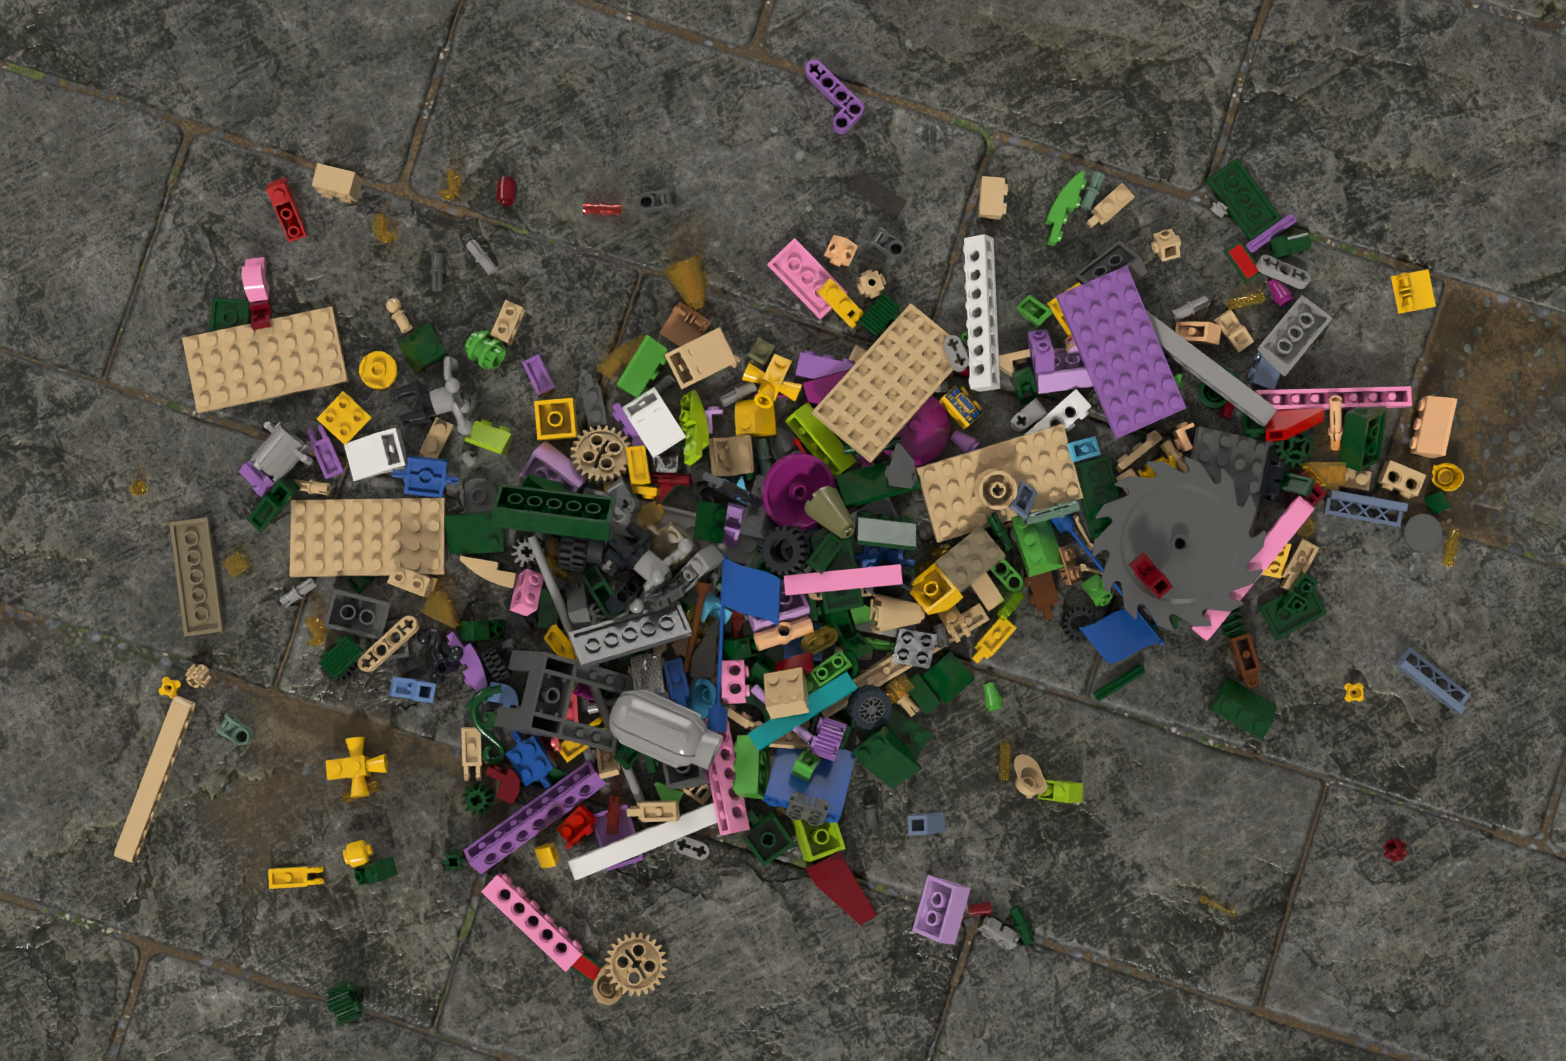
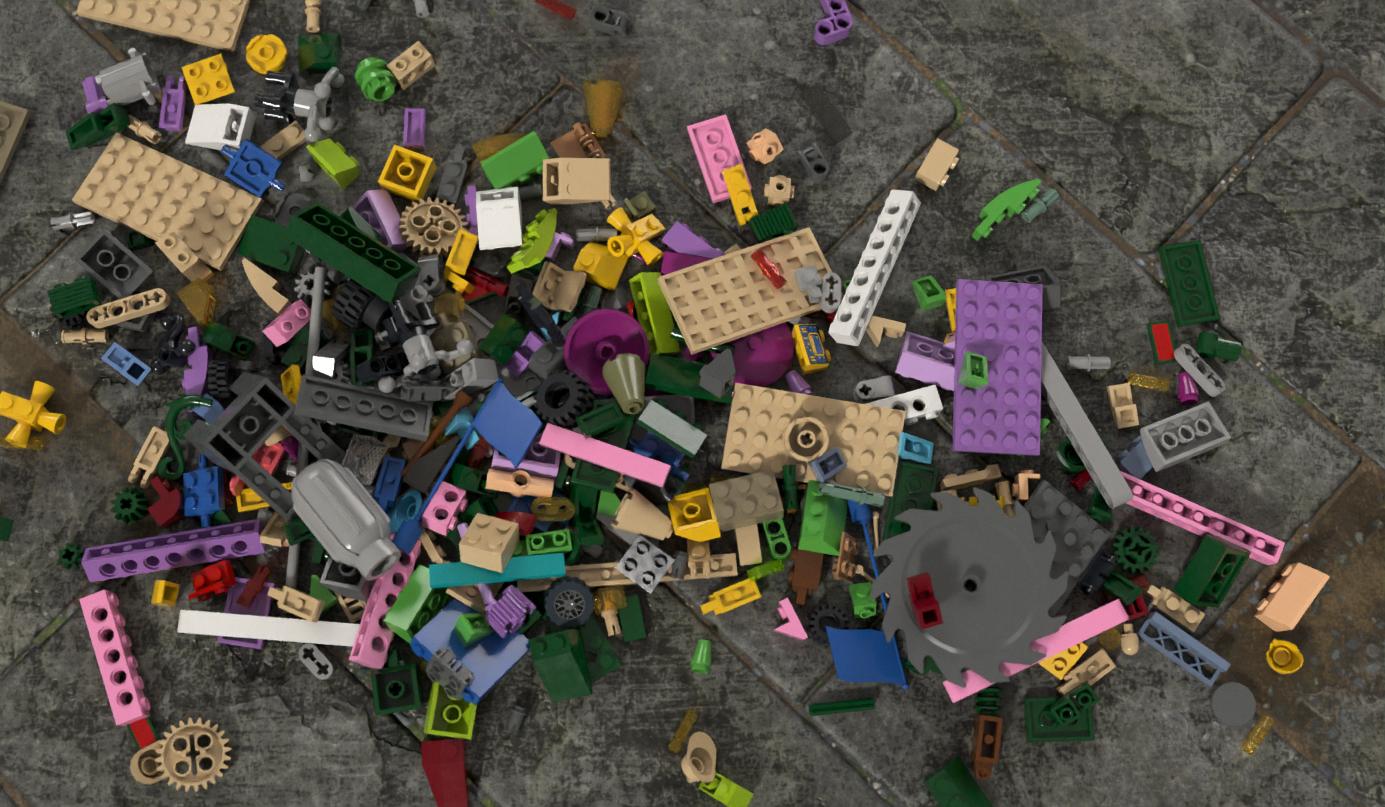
camera: 25 degrees right, 10 degrees down
(236, 564) = (30, 167): clear yellow tile -> none
(316, 627) = (69, 265): clear yellow bracket -> none
(363, 682) = (84, 336): none -> tan pin
(882, 644) = (612, 546): bright green axle -> none
(897, 358) = (768, 269): none -> clear red pin
(925, 823) = (568, 755): sand blue slope -> none
(934, 351) = (809, 281): none -> light grey plate
(947, 677) = (666, 614): dark green slope -> none
(1024, 385) = (885, 357): dark green slope -> none
(1041, 351) = (917, 330): medium lavender brick -> none
(1052, 638) = (793, 627): none -> bright pink slope
(1104, 367) = (974, 371): none -> bright green slope
(1110, 205) = (1051, 228): tan hinge -> none
(1166, 245) = (1091, 288): tan brick -> none
(1199, 332) = (1088, 389): light nougat slope -> none
(1219, 209) = (1160, 280): light grey plate -> none
(1270, 233) = (1207, 326): medium lavender axle -> none
(1292, 422) = (1140, 521): red slope -> none
(1321, 521) = (1129, 641): none -> tan cylinder
(1327, 473) = (1157, 590): clear yellow slope -> none
(1335, 429) = (1189, 543): light nougat pin -> none
(1401, 474) = (1236, 631): tan brick -> none
(1413, 291) = (1325, 452): yellow hinge -> none
(1437, 502) = (1262, 679): dark green slope -> none

